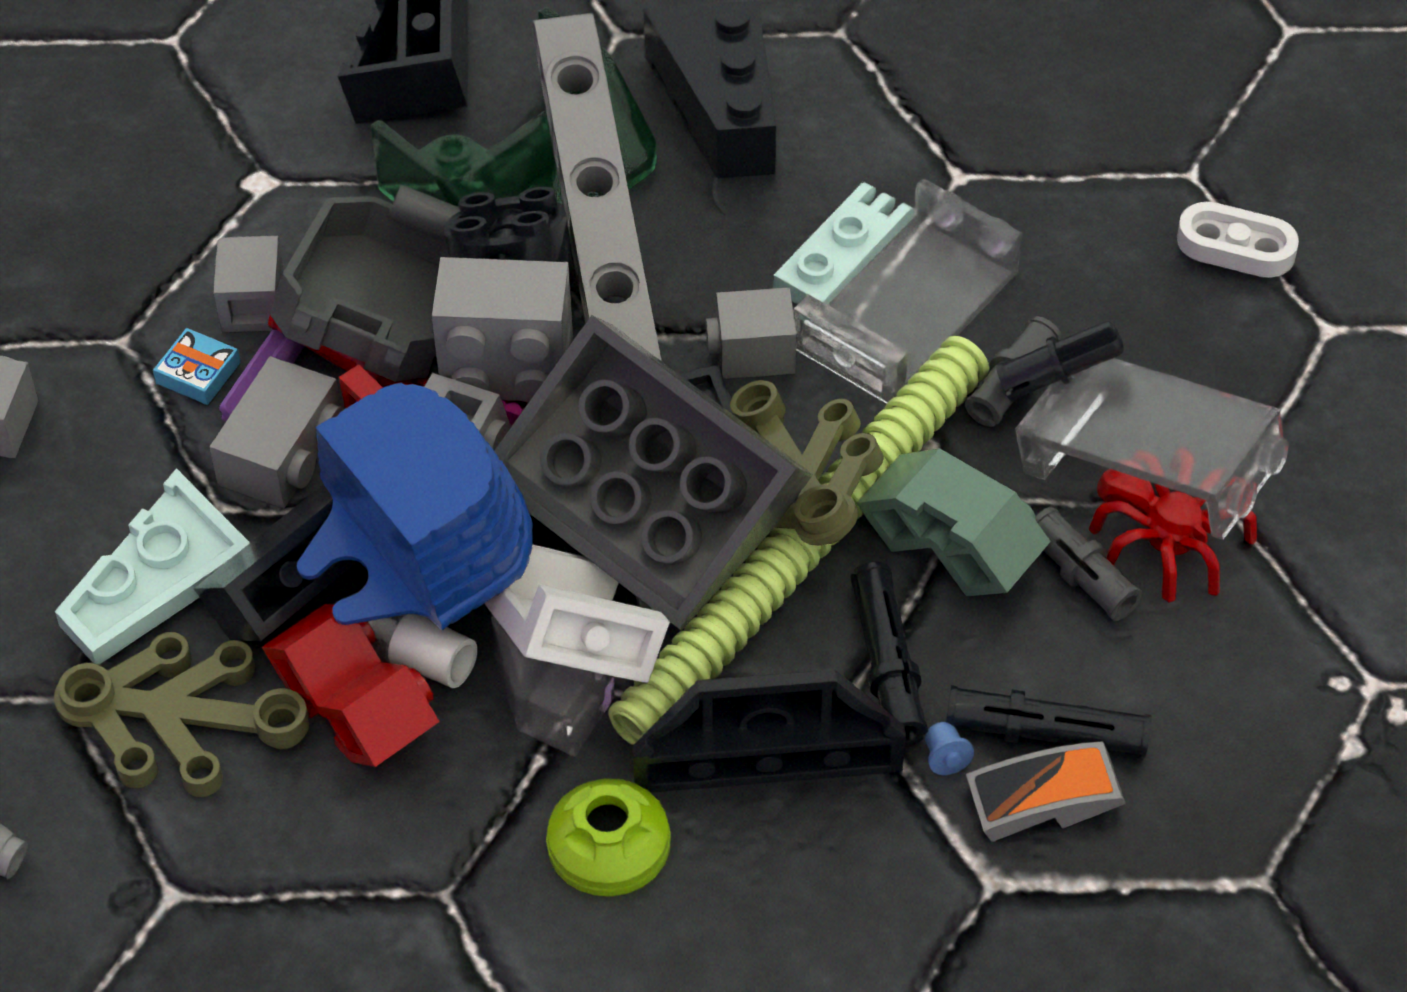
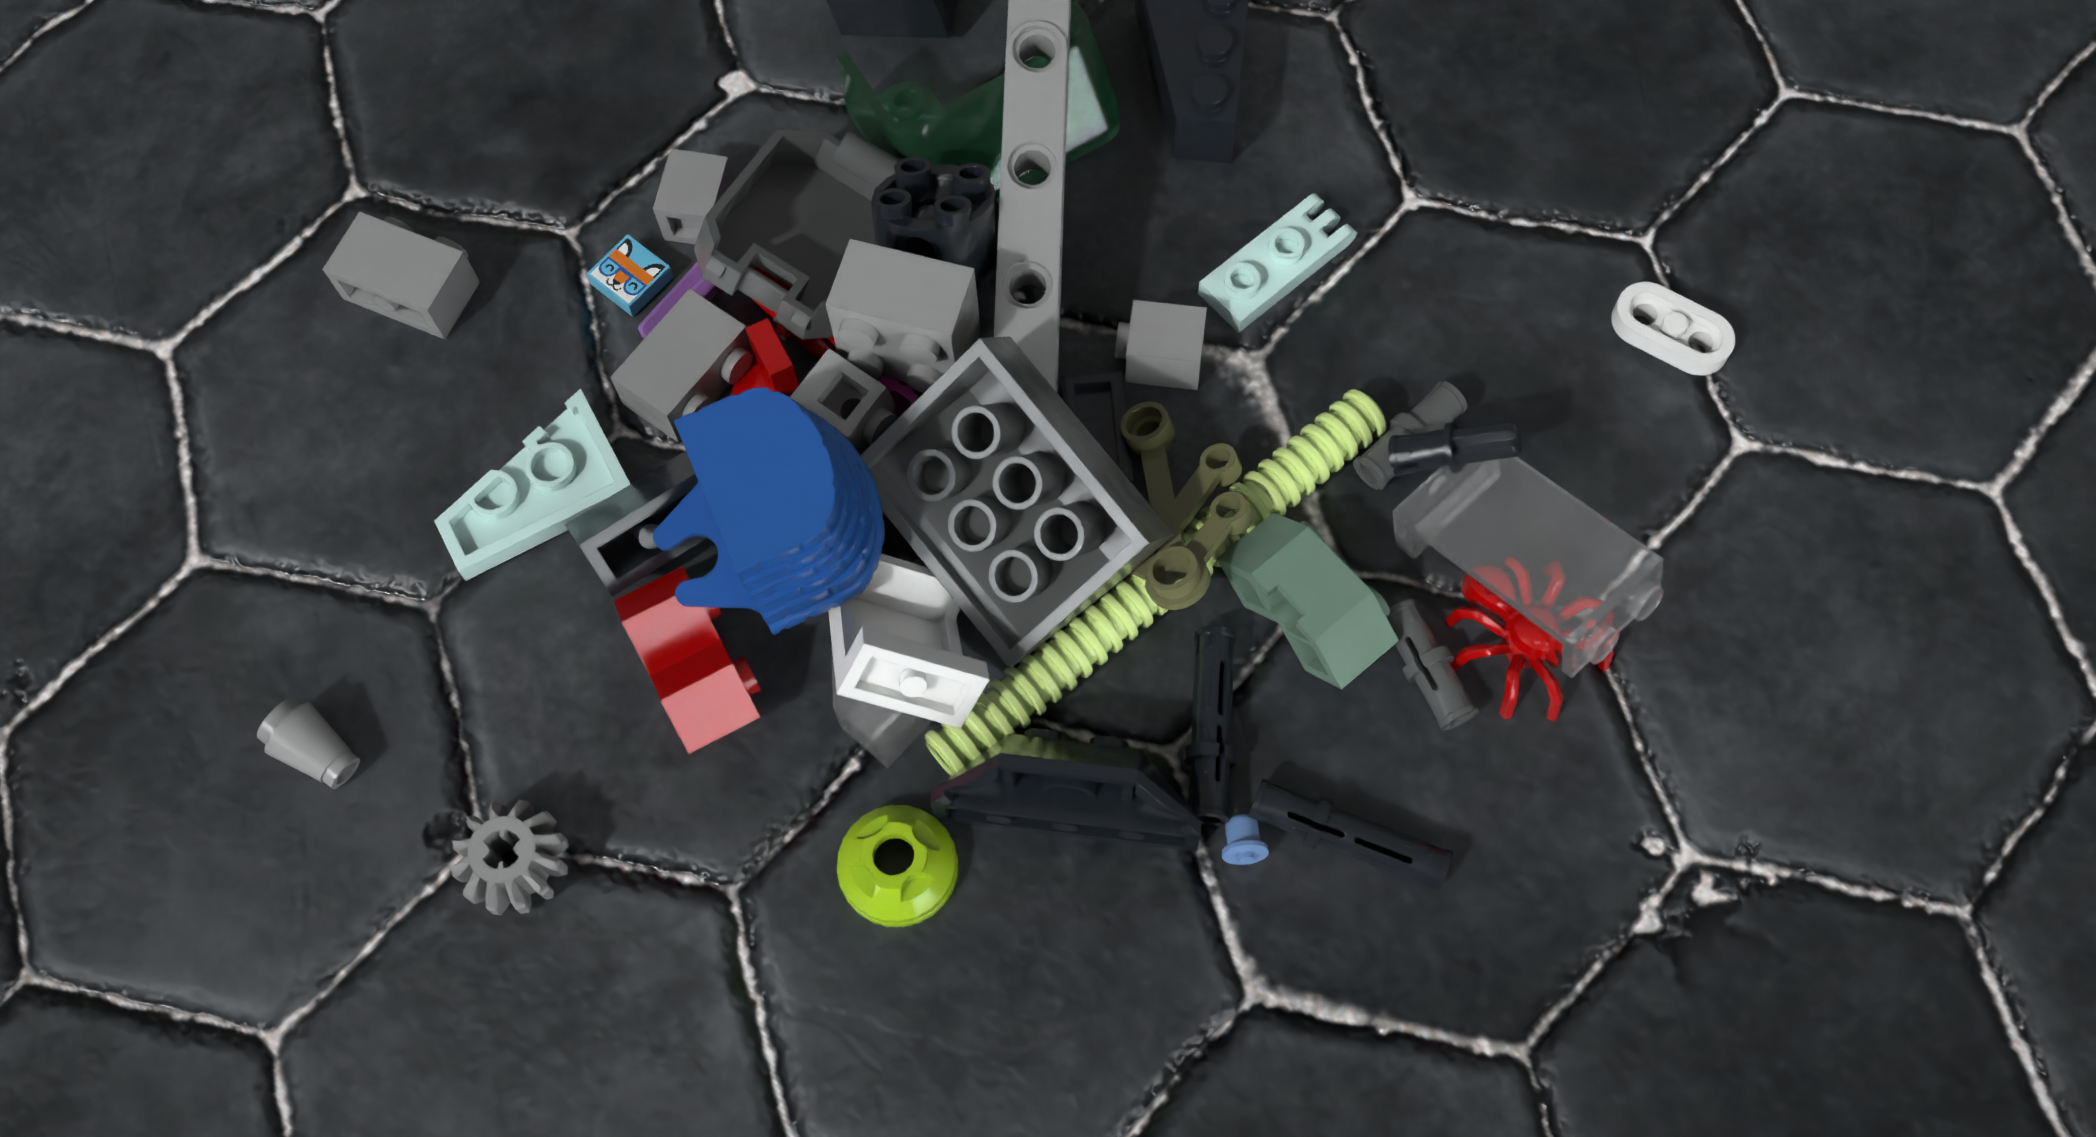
camera: 15 degrees right, 15 degrees up
(173, 706) = (523, 639): olive plant -> none
(212, 897) = (486, 871): none -> light grey gear
(423, 646) = (784, 651): white piece -> none
(911, 294) = (1329, 329): clear panel -> none
(1044, 785) = (1329, 908): slope -> none

